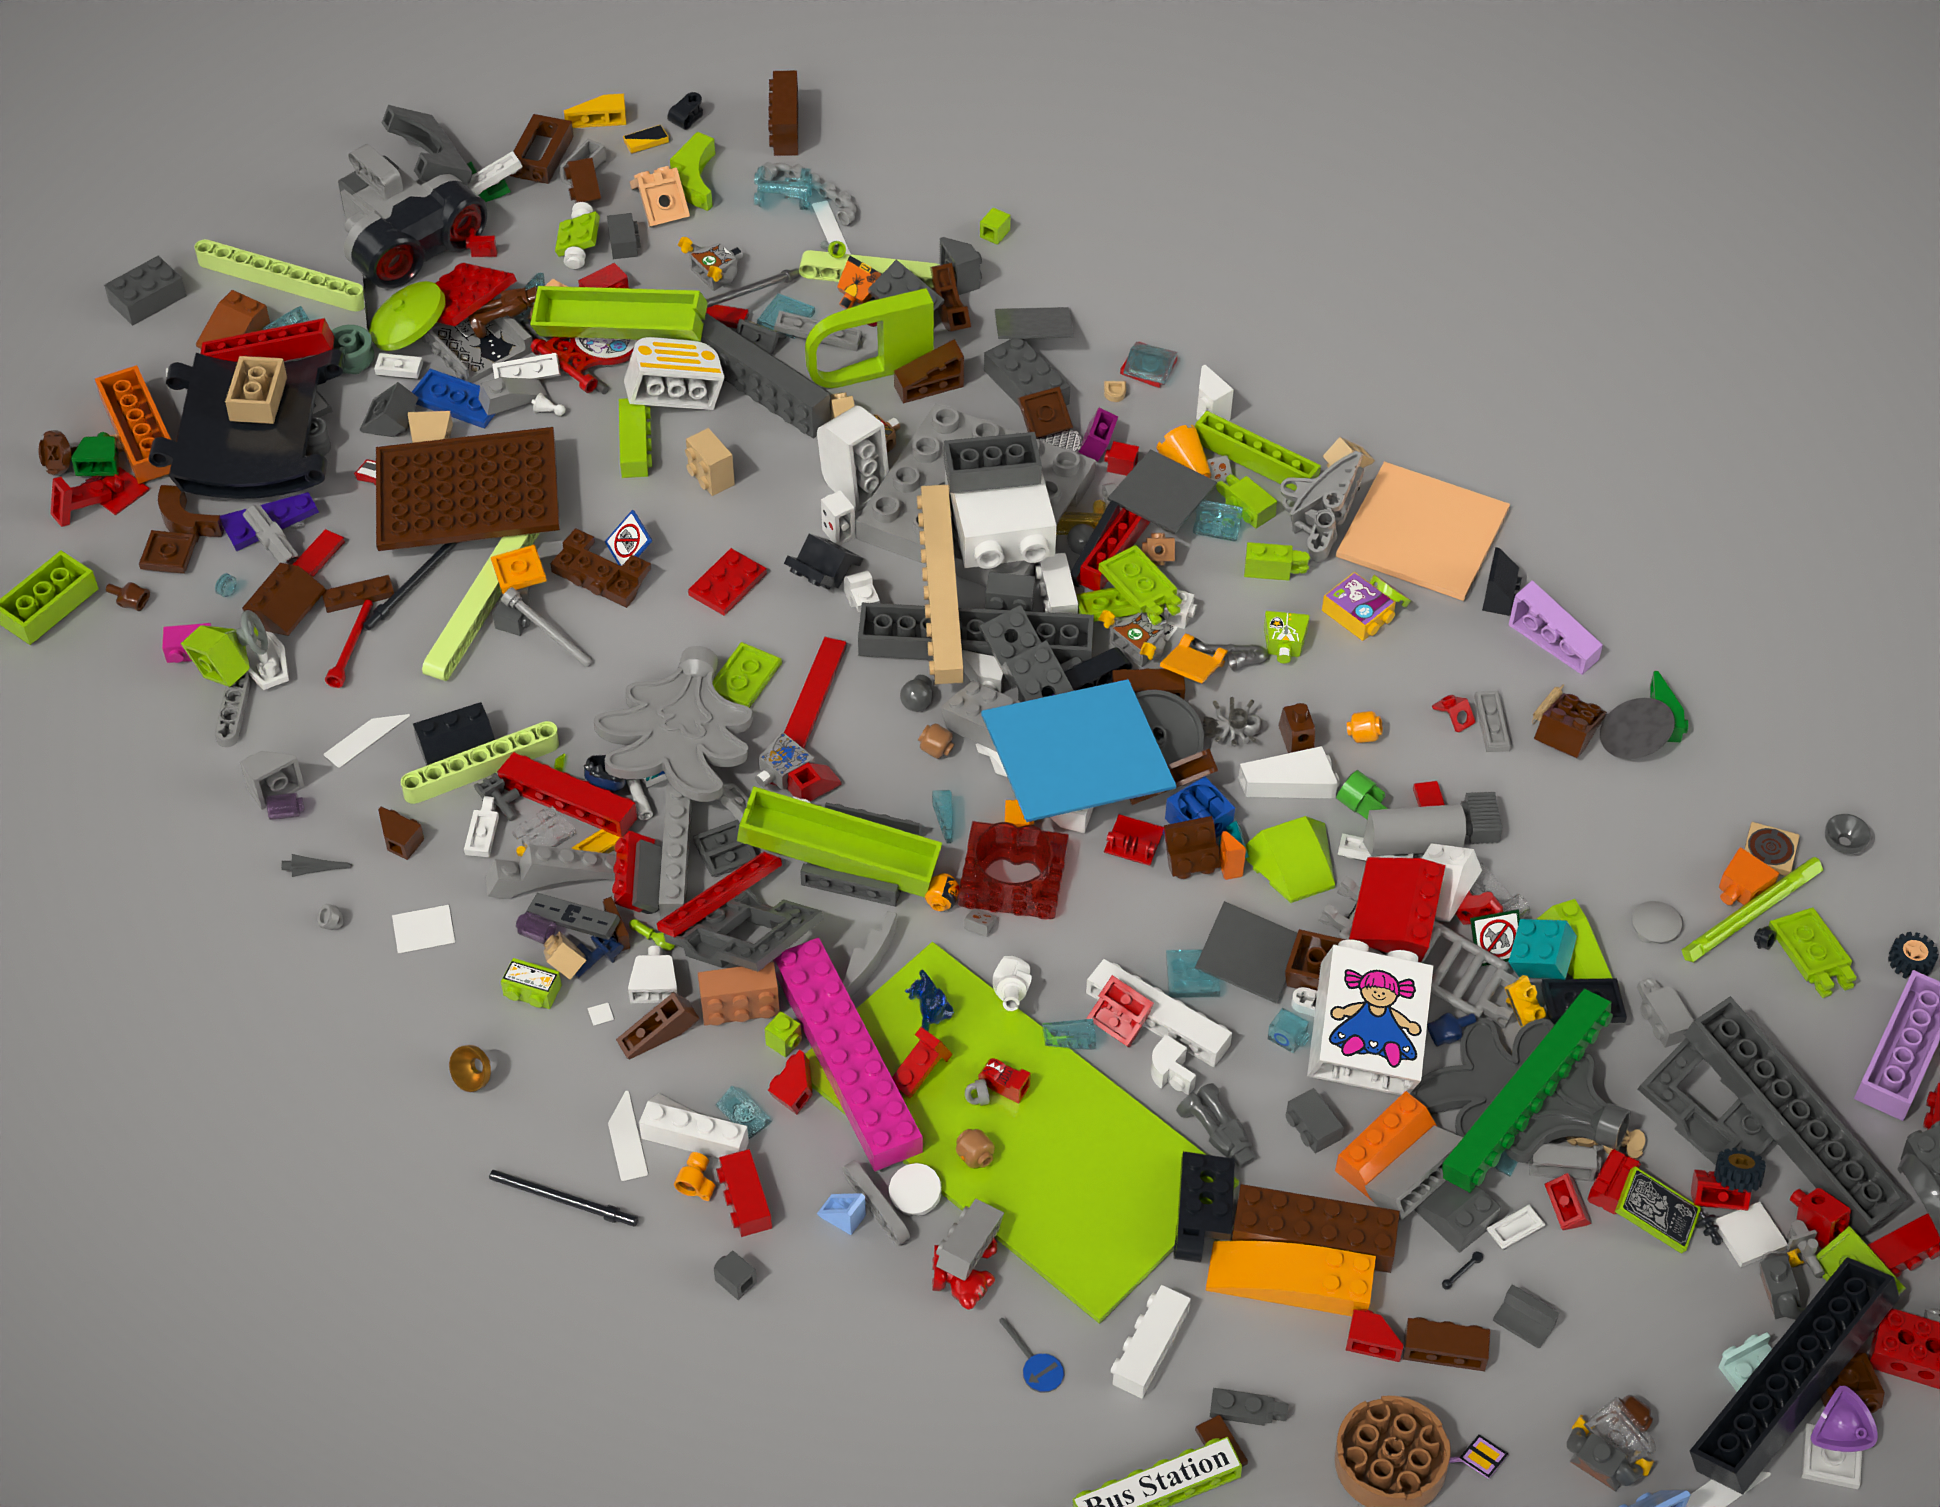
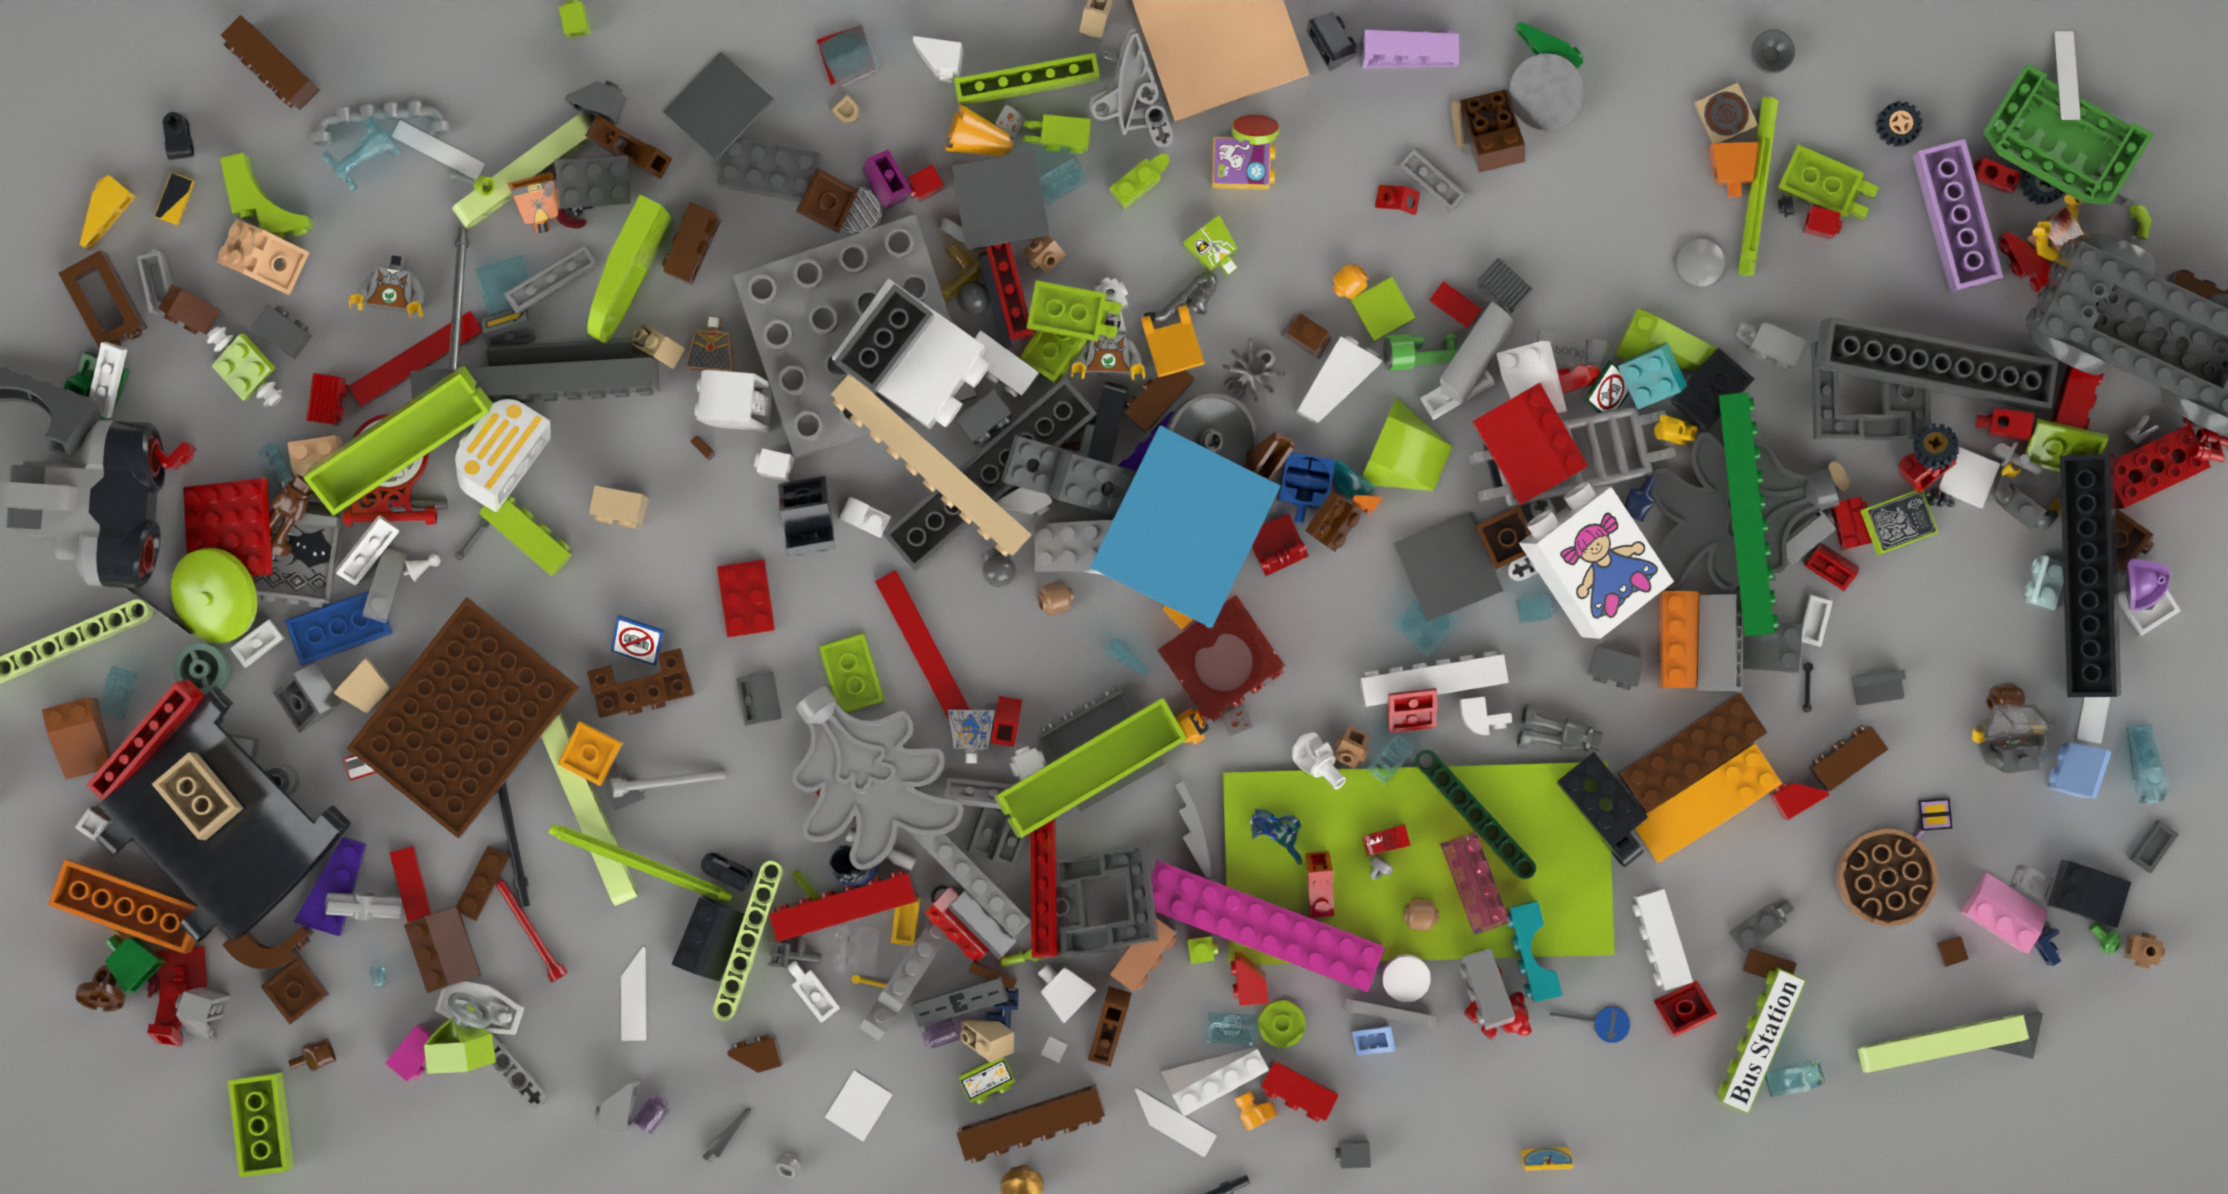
camera: 40 degrees left, 35 degrees up
(98, 505) = (202, 1011): none -> light grey wedge
(470, 655) = (640, 863): none -> lime piece
(517, 710) = (726, 871): none -> black arm
(526, 1031) = (1031, 1122): none -> reddish brown brick
(614, 417) = (459, 555): none -> dark grey hinge
(666, 638) = (759, 698): none -> dark grey panel
(785, 1141) = (1281, 1023): none -> lime tile
(803, 480) = (703, 447): none -> reddish brown tile
(880, 1421) = (1546, 1158): none -> slope
(1041, 1160) = (1475, 882): none -> clear pink brick
(1047, 998) = (1350, 751): none -> medium nougat brick
(1051, 1227) = (1541, 982): none -> teal arch
(1093, 1129) = (1485, 820): none -> dark green beam
(1114, 1412) = (1685, 1009): none -> red slope
(1374, 761) = (1382, 309): none -> lime tile
(1785, 968) = (1822, 222): none -> red brick

